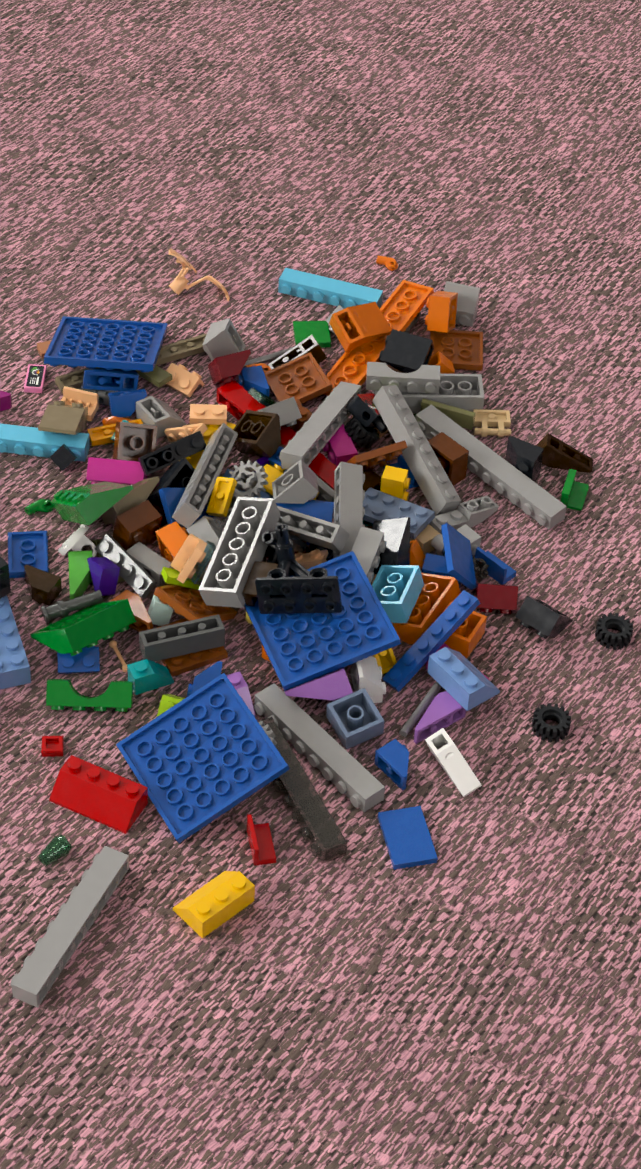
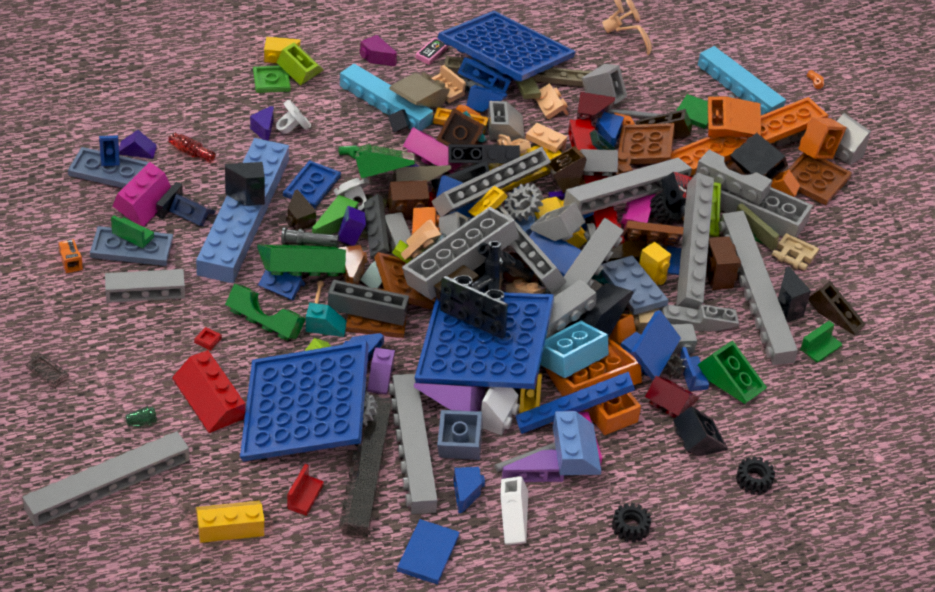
camera: 30 degrees right, 0 degrees up
(527, 551) = (732, 373): none -> green slope

